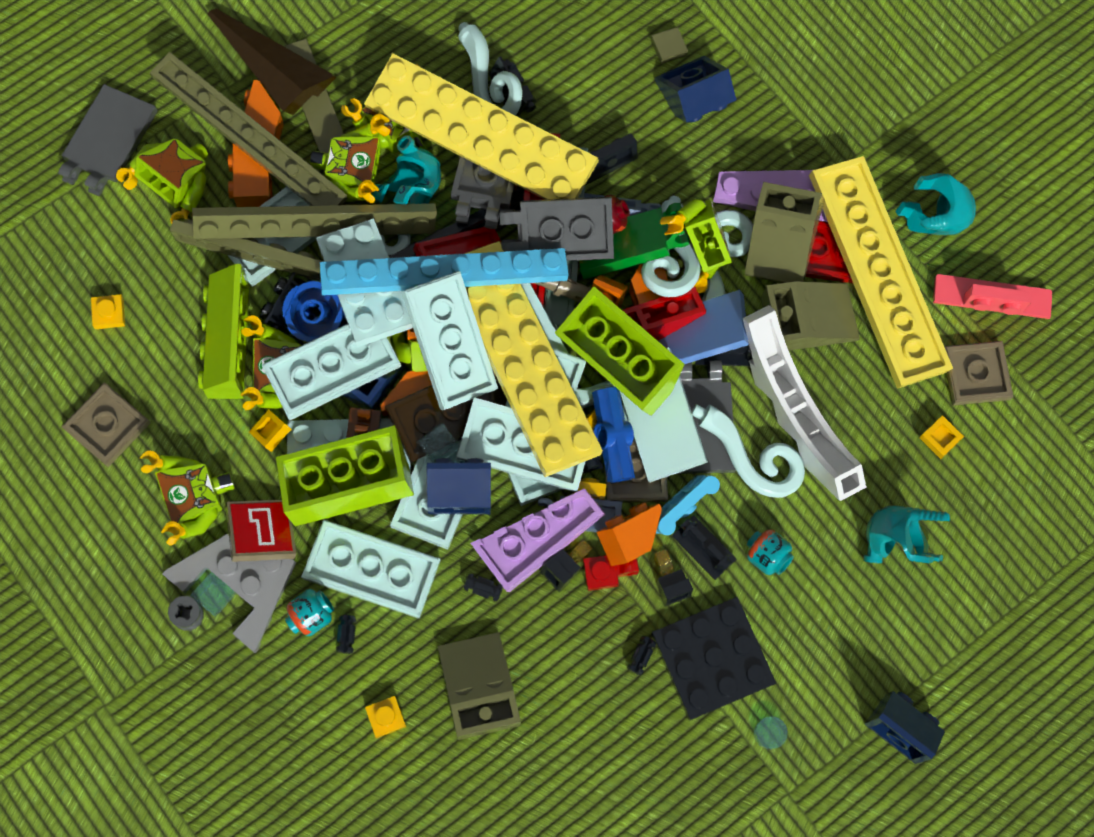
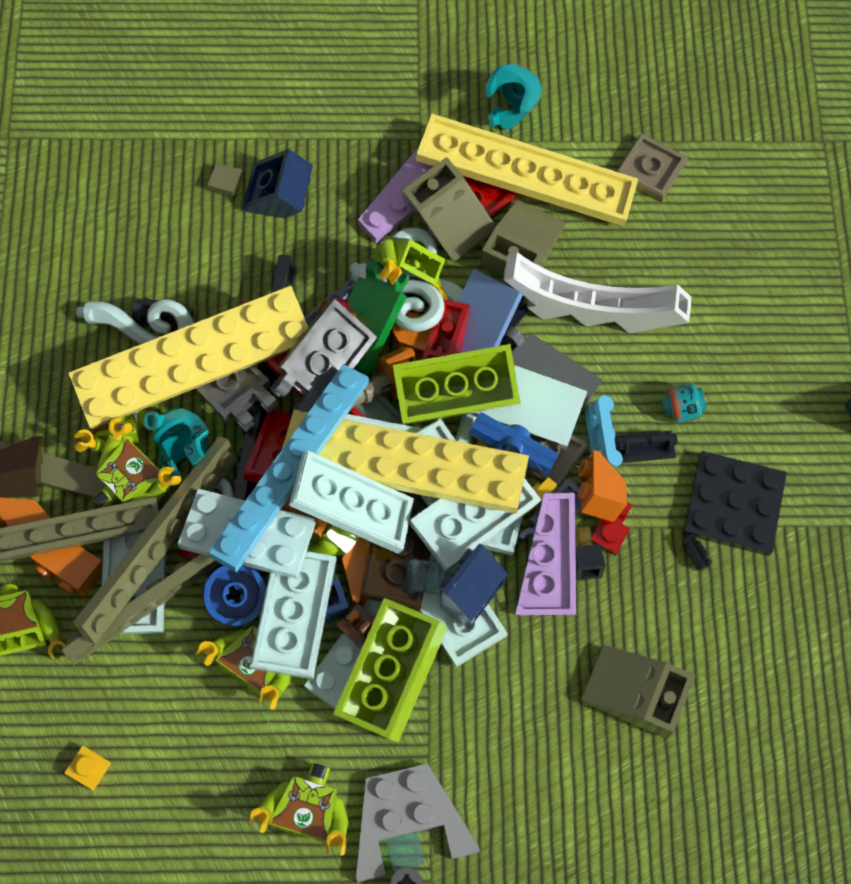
camera: 50 degrees left, 5 degrees down
(106, 424) = (187, 840): dark tan tile -> none
(224, 343) = (191, 680): lime slope -> none
(259, 531) = (383, 772): red tile -> none
(270, 430) = (302, 704): yellow plate -> none
(272, 311) = (191, 608): black hinge -> none
(309, 612) = (481, 781): teal head -> none
(346, 634) = (518, 765): black piece -> none
(371, 569) = (477, 708): light aqua tile -> none
(385, 717) = (608, 782): yellow plate -> none
(483, 587) = (557, 630): black piece -> none
(673, 585) = (660, 489): black piece -> none
(723, 427) = (565, 363): light aqua plant -> none
(770, 733) = (820, 504): clear light blue tile -> none
(901, 526) = (730, 301): teal piece -> none
(941, 437) = (683, 225): yellow plate -> none
(992, 296) = (602, 115): coral bracket -> none

